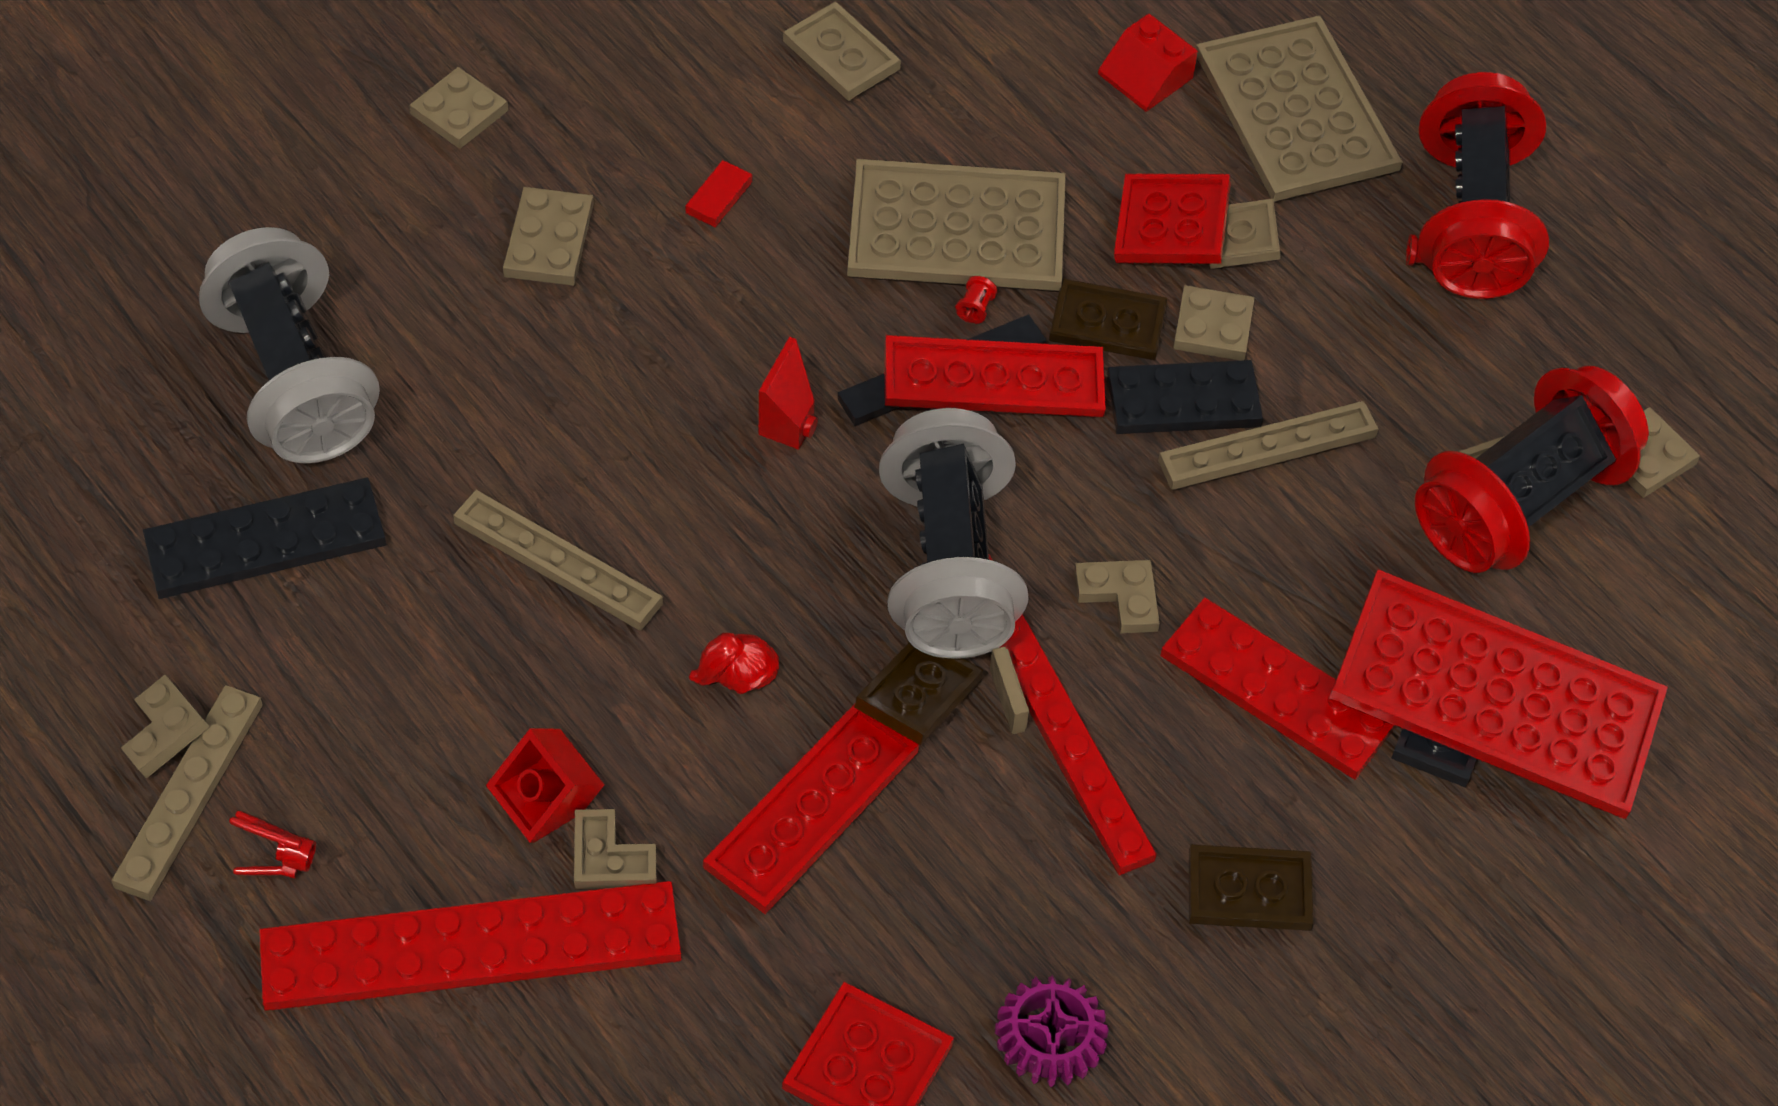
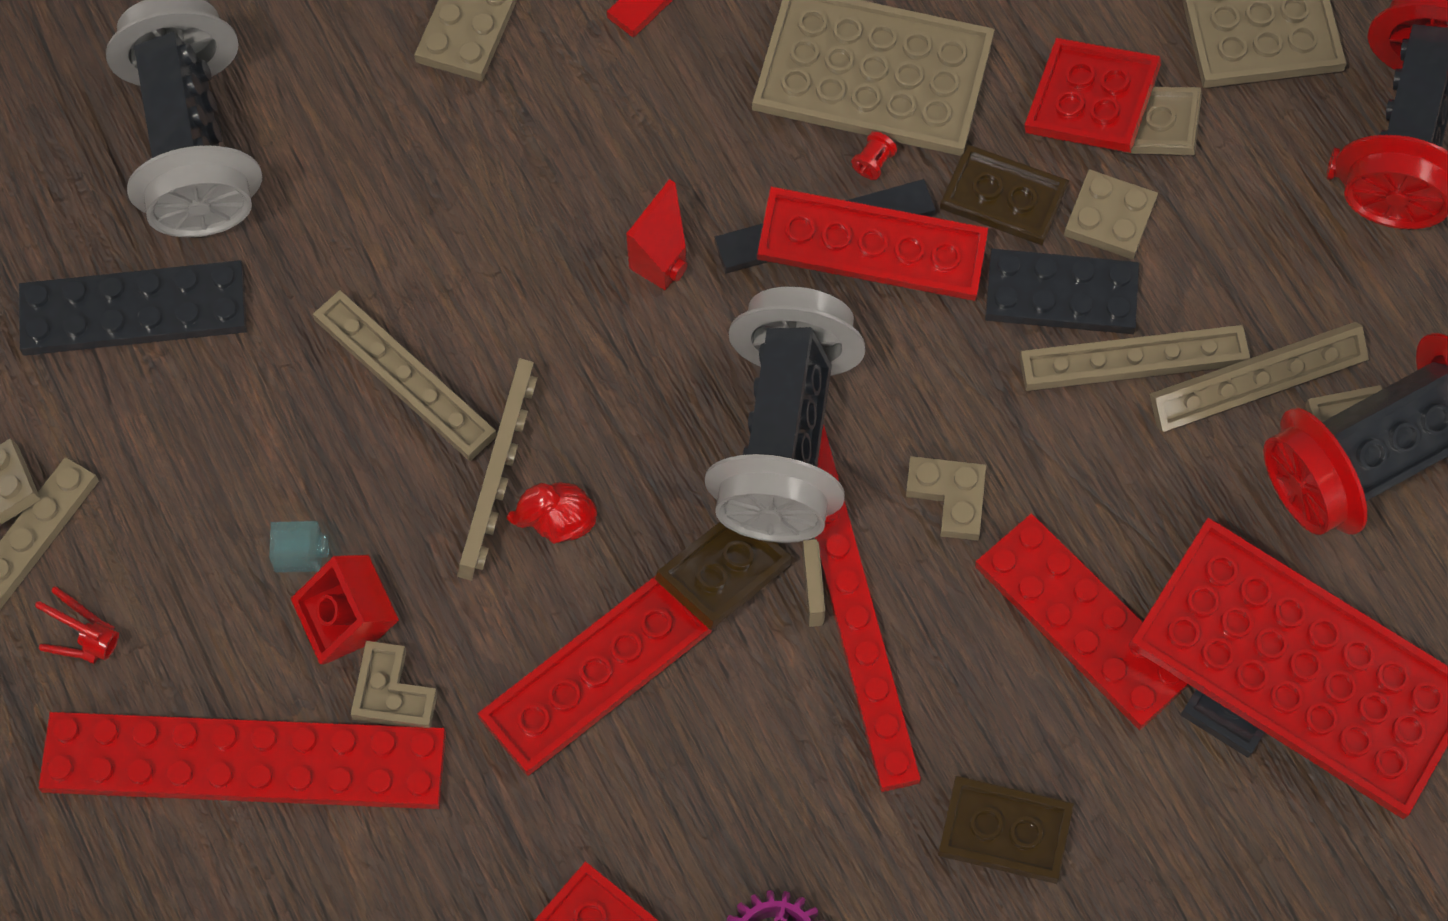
camera: 15 degrees right, 10 degrees up
(485, 733) = (297, 546): none -> clear light blue brick
(672, 647) = (494, 484): none -> dark tan plate
(1389, 445) = (1259, 376): none -> dark tan plate

